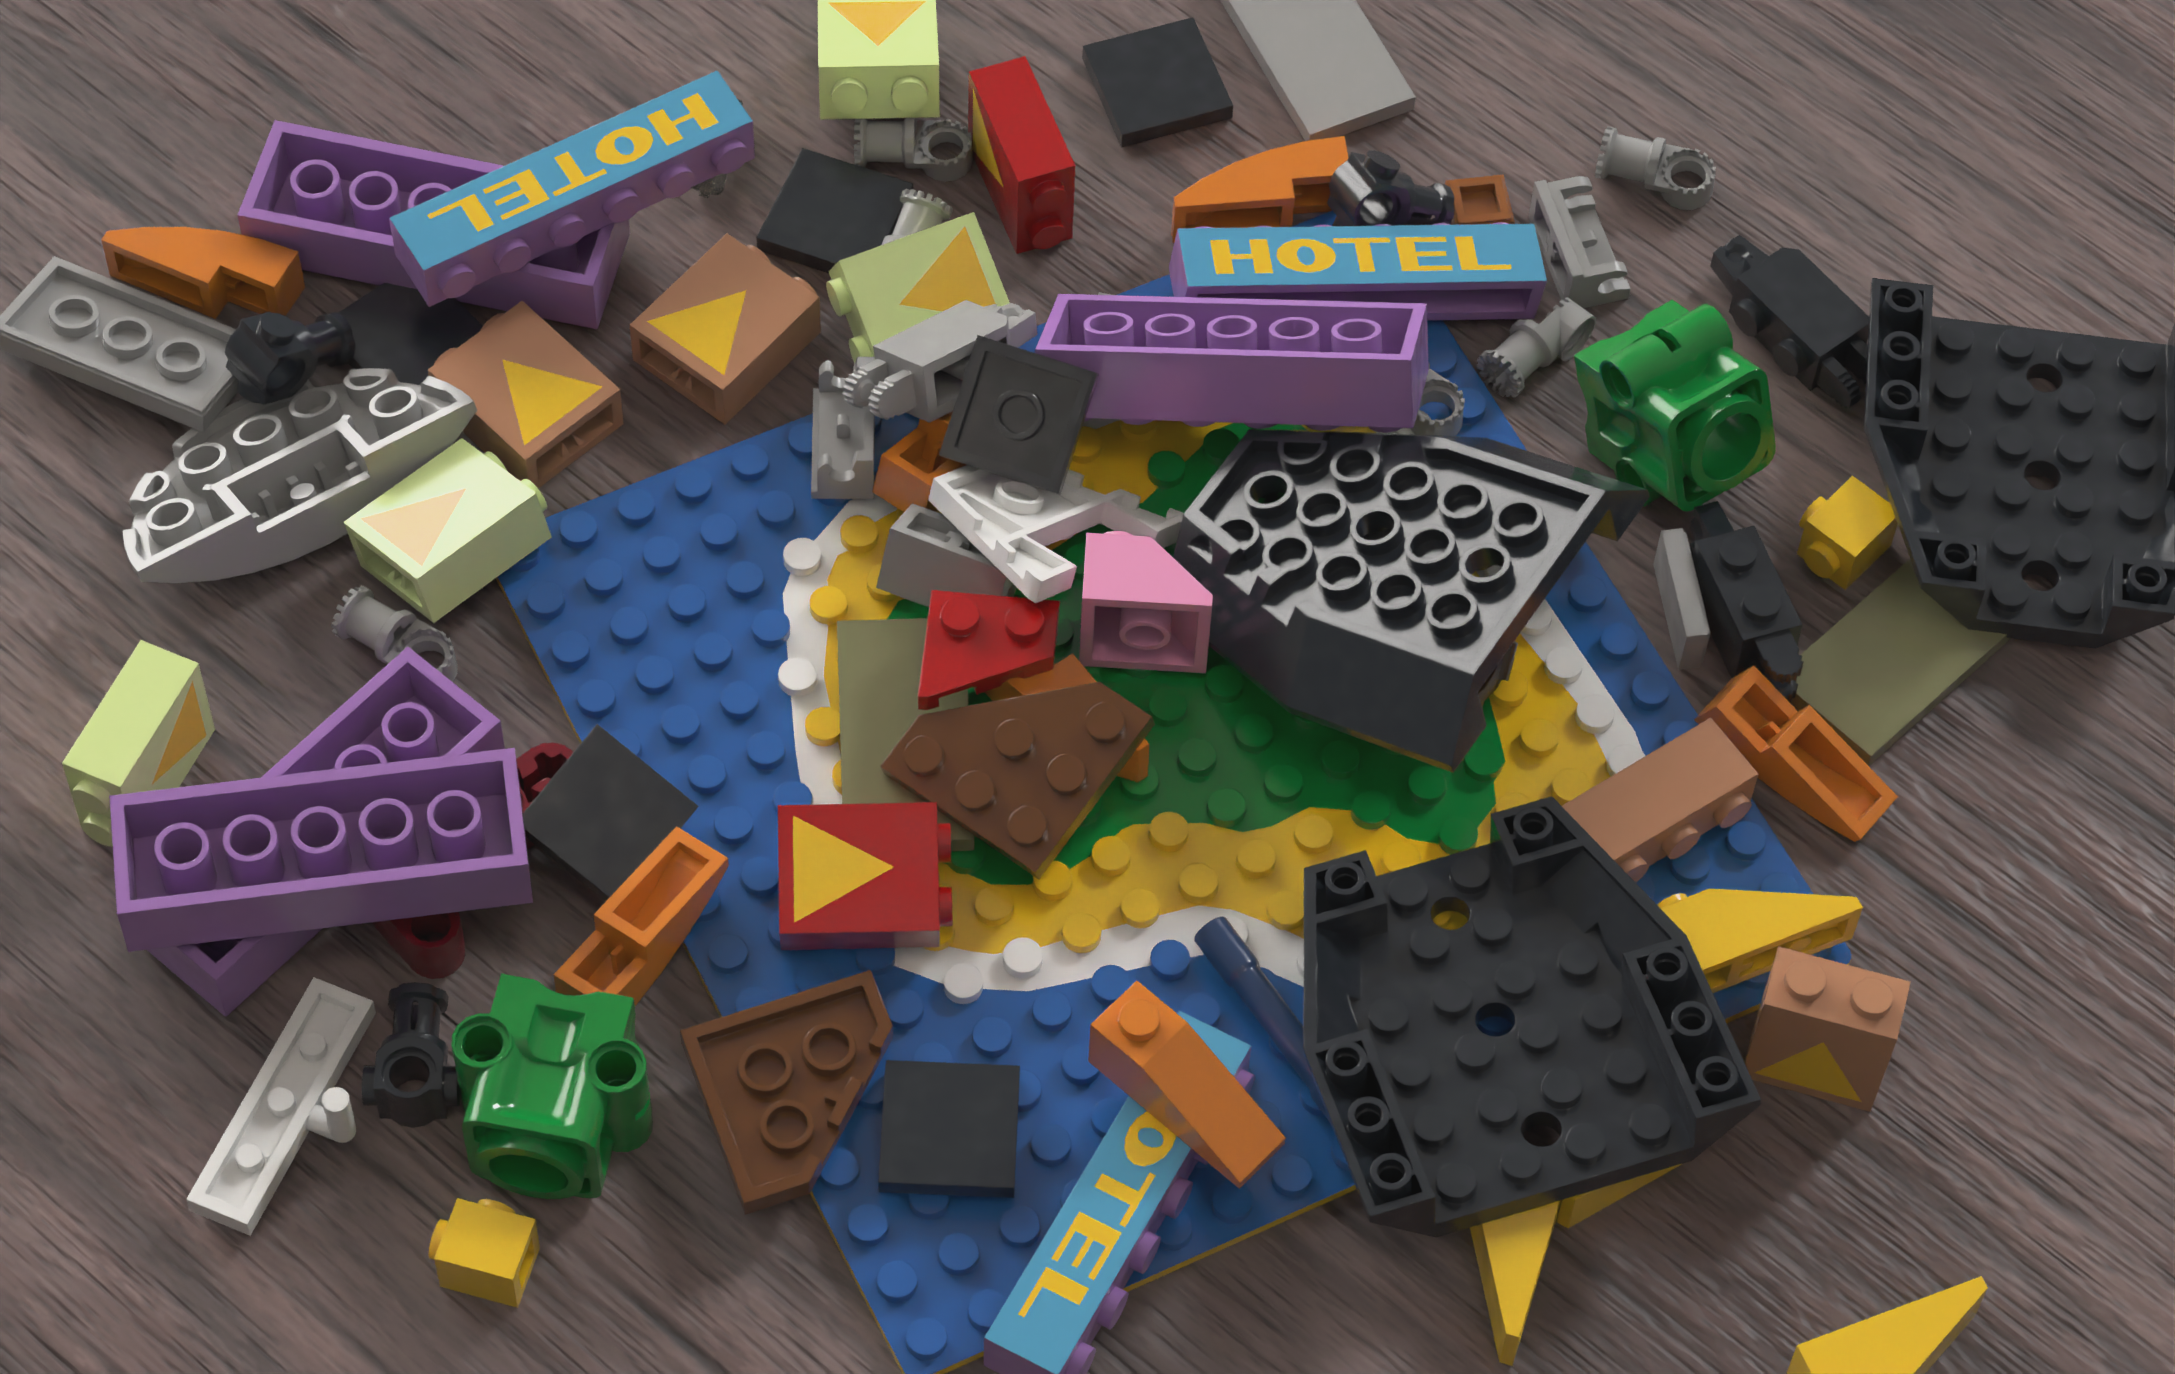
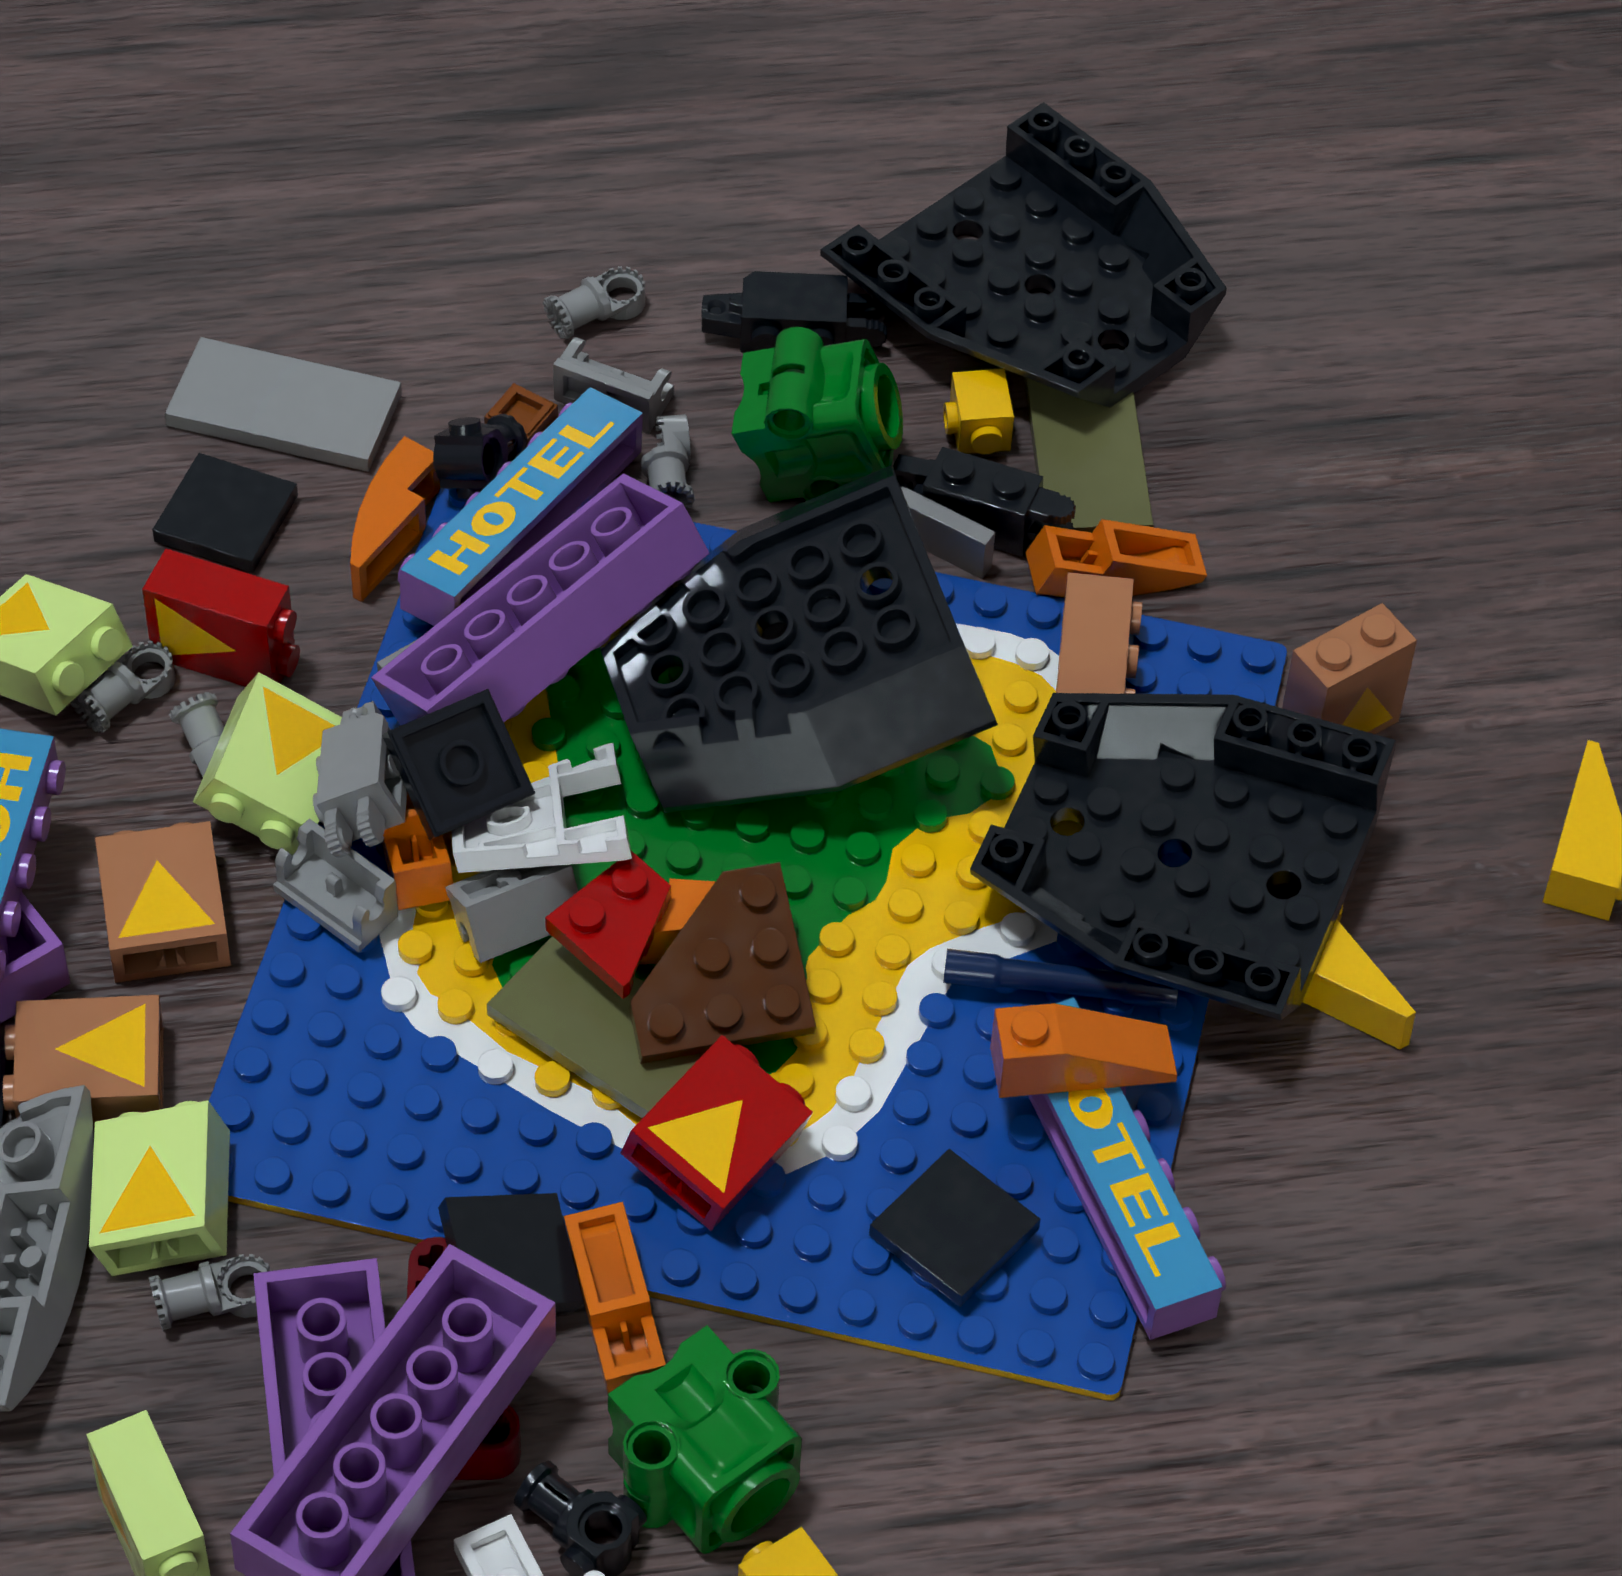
camera: 50 degrees left, 5 degrees down
(787, 1082) = (831, 1297): reddish brown plate -> none
(830, 211) = (131, 773): black tile -> none
(1141, 607) = (676, 807): bright pink slope -> none
(1741, 930) = (1240, 659): yellow slope -> none

